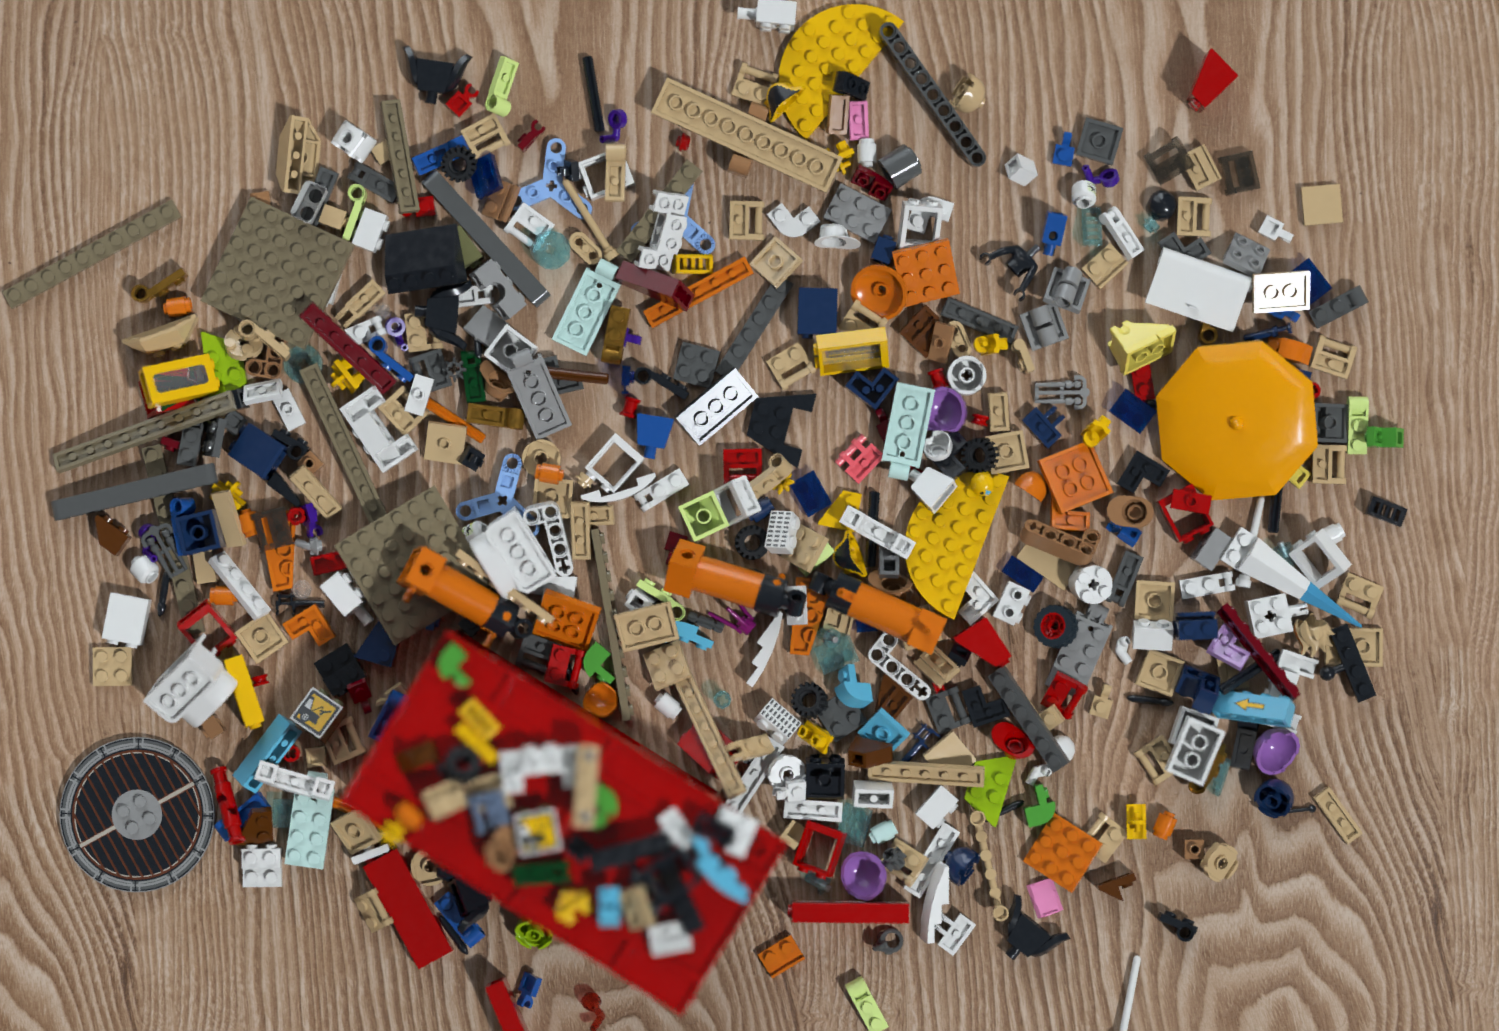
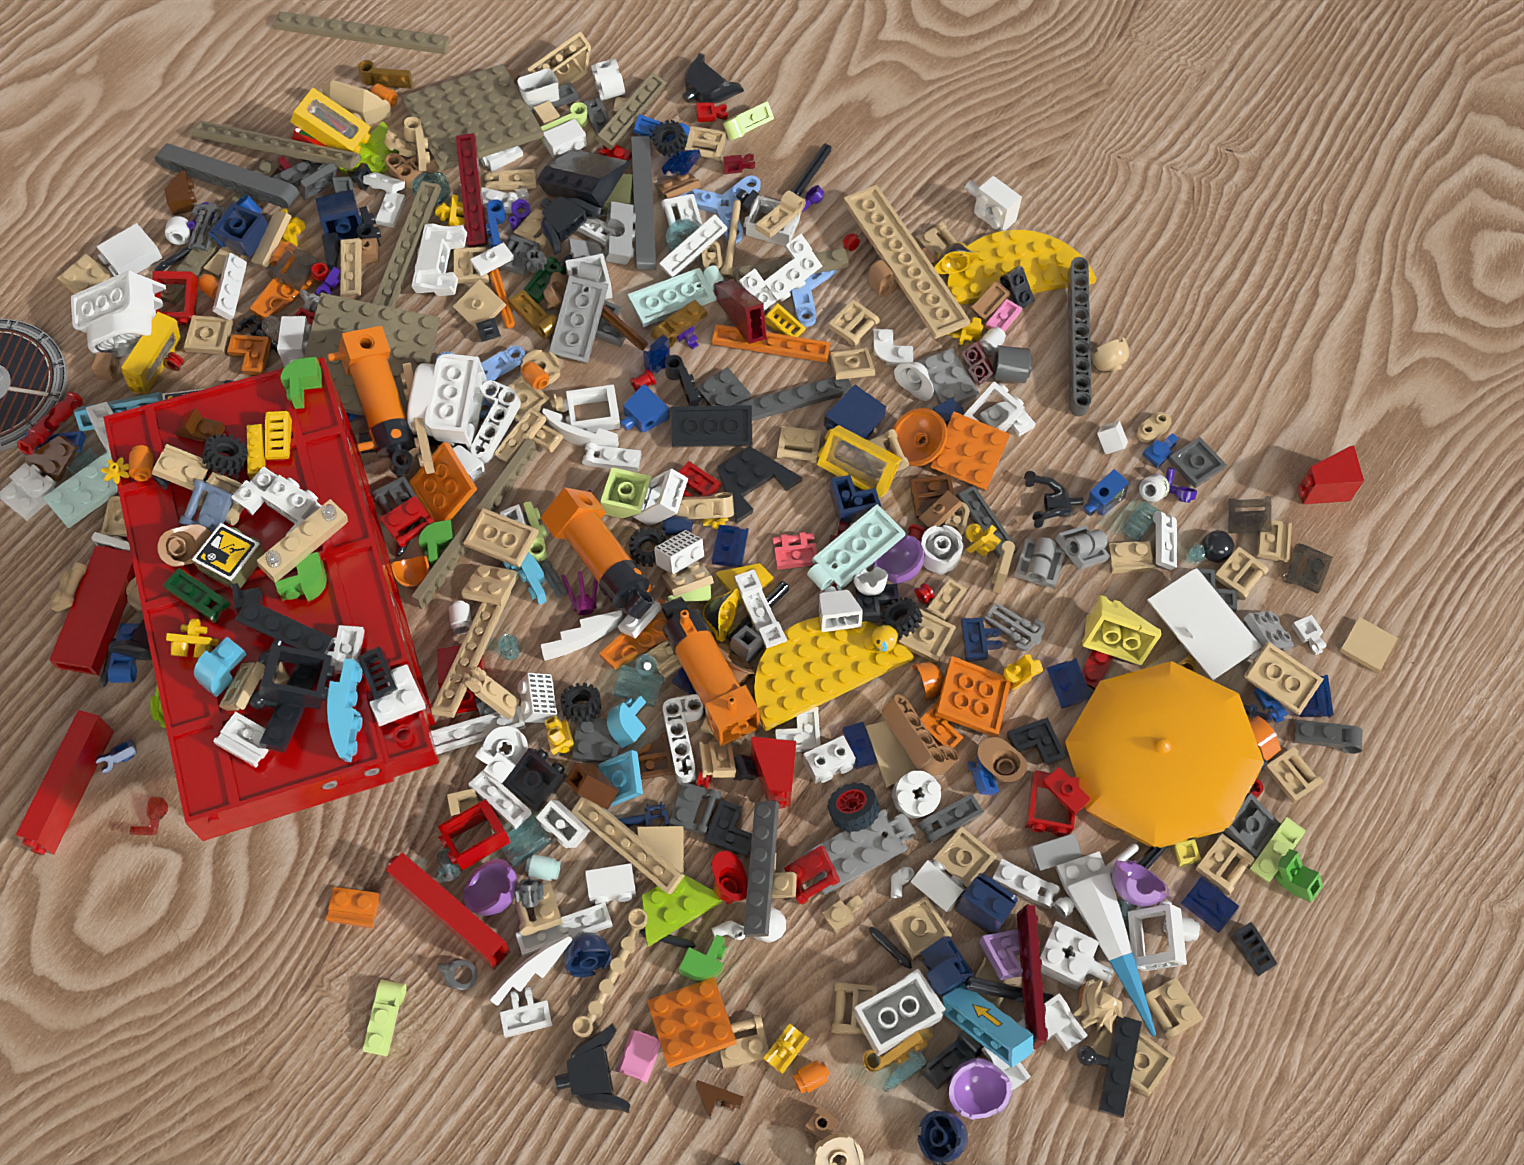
camera: 40 degrees right, 25 degrees down
(568, 255) = (693, 246): none -> white plate
(1044, 132) = (1155, 427): none -> tan plate
(1284, 532) = (1138, 884): none -> medium lavender cylinder
(1337, 501) = (1210, 904): none -> clear blue plate

